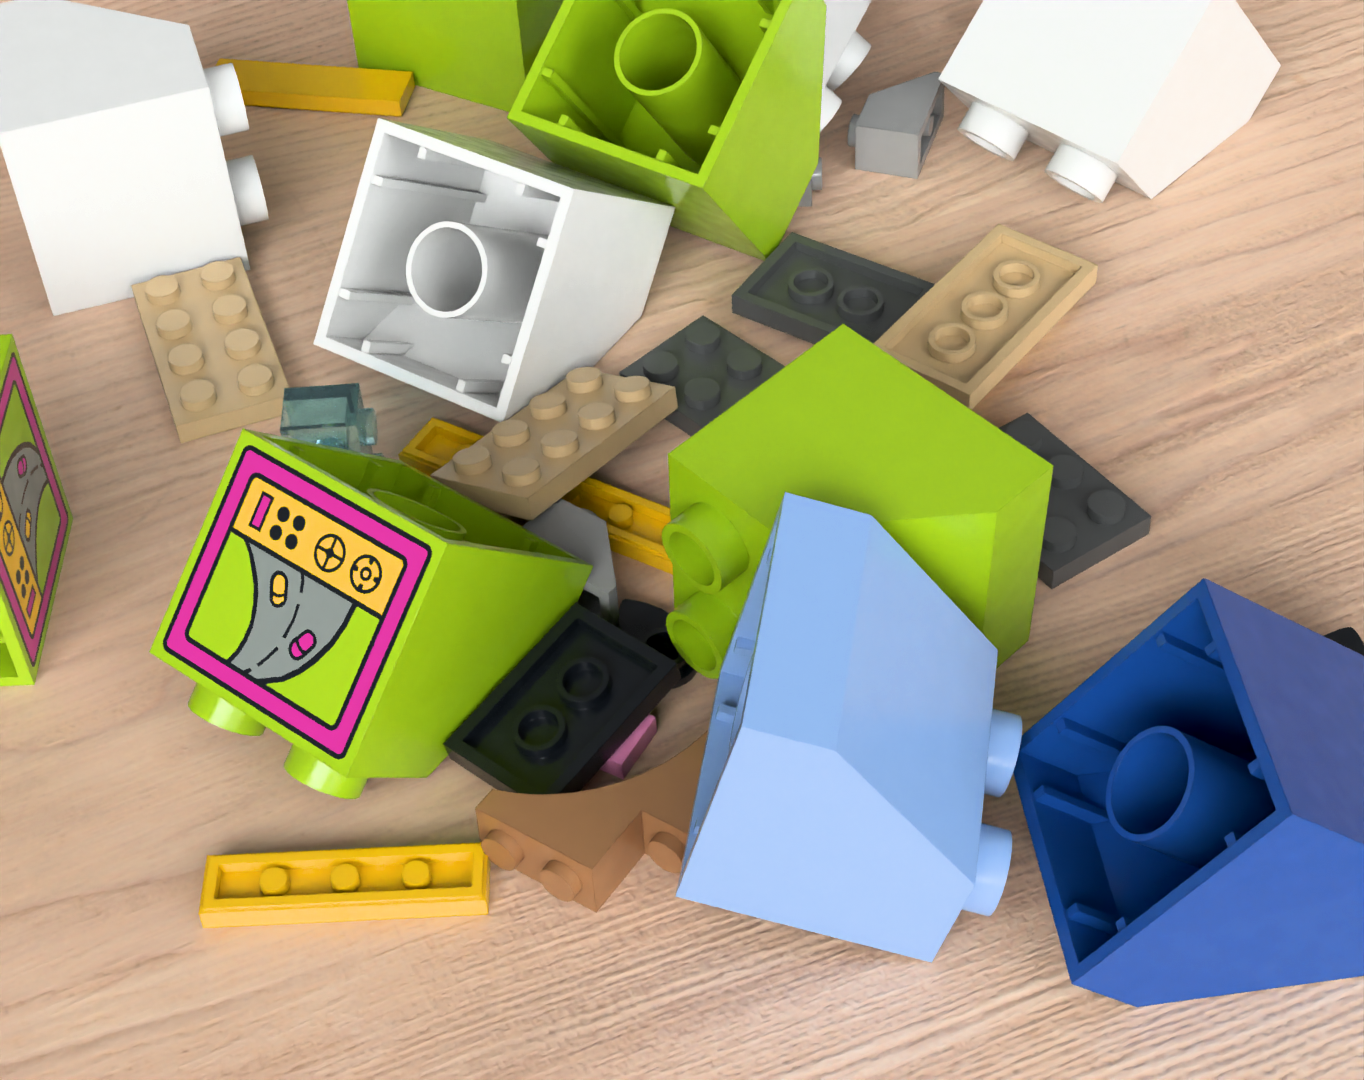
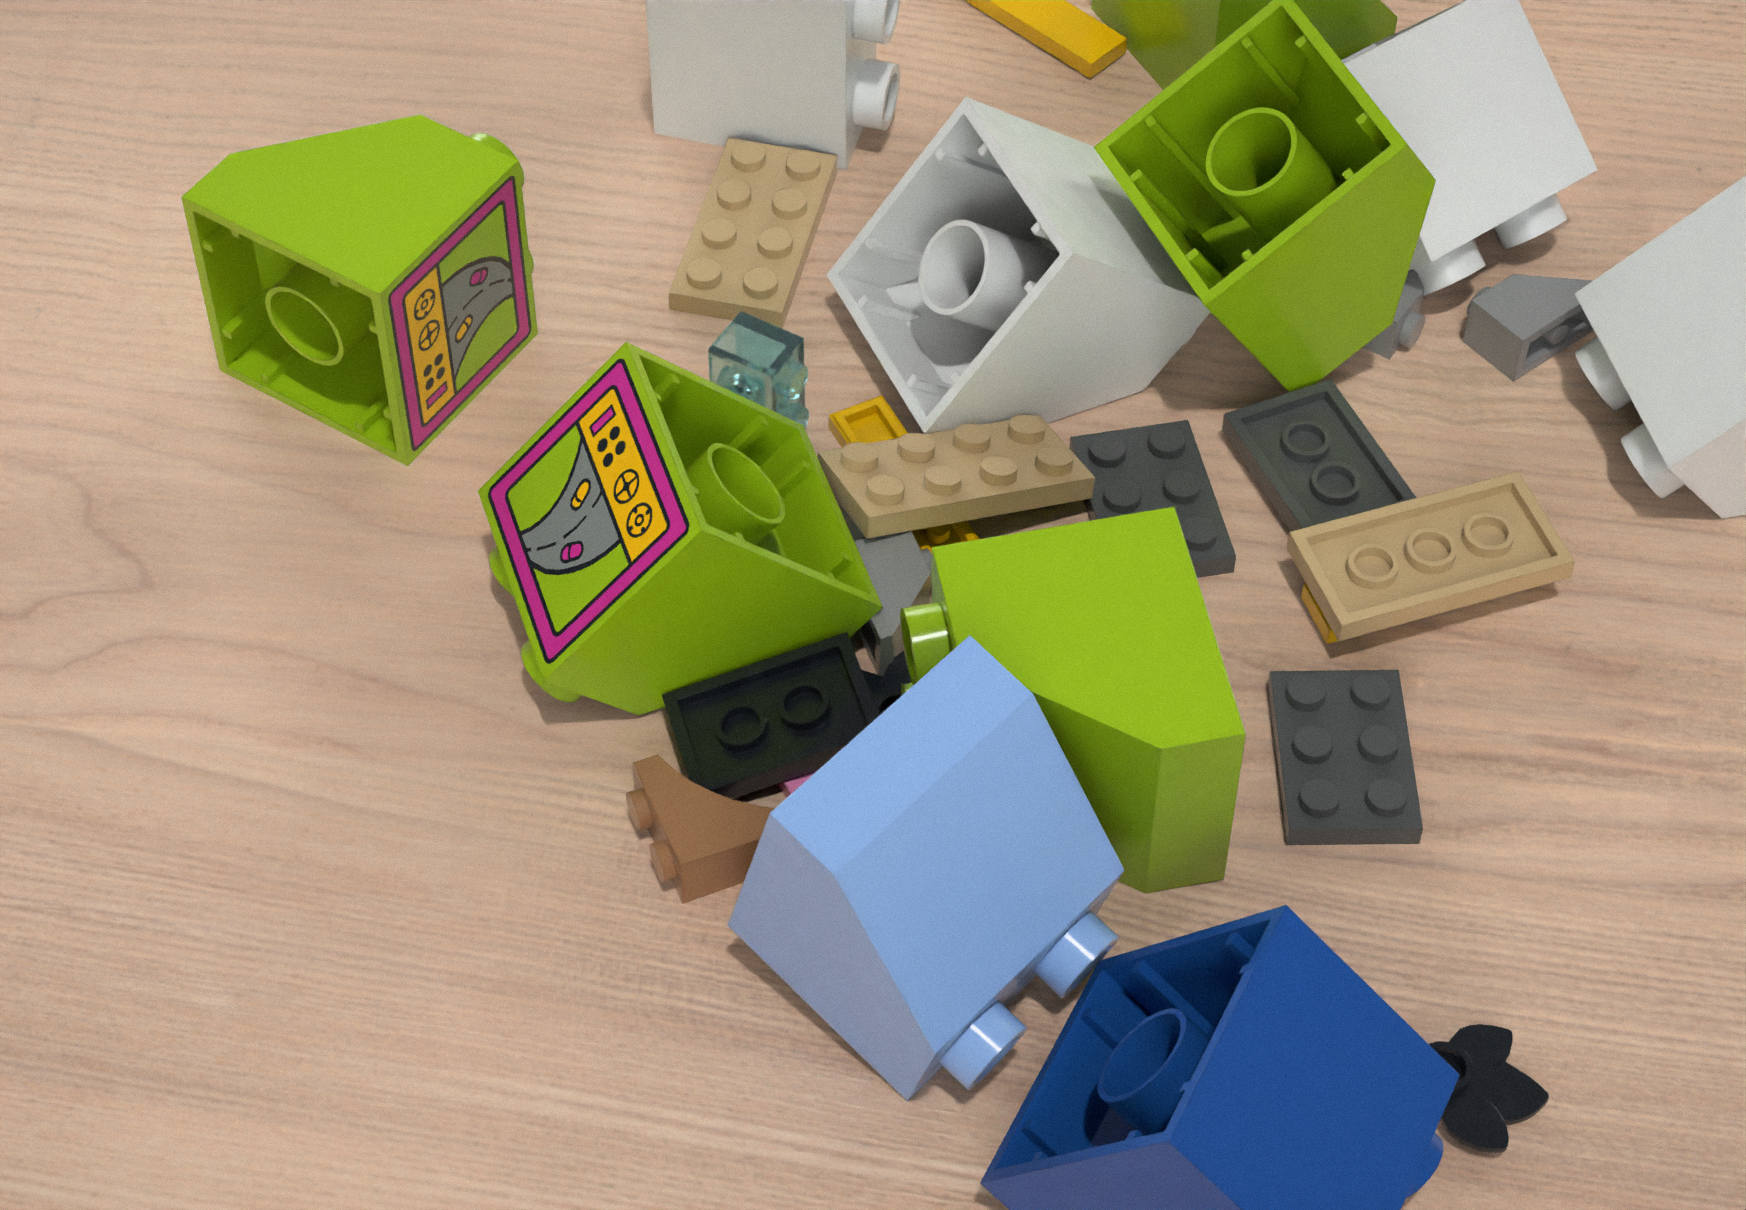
camera: 30 degrees right, 5 degrees up
(345, 885) = (510, 769): yellow tile -> none

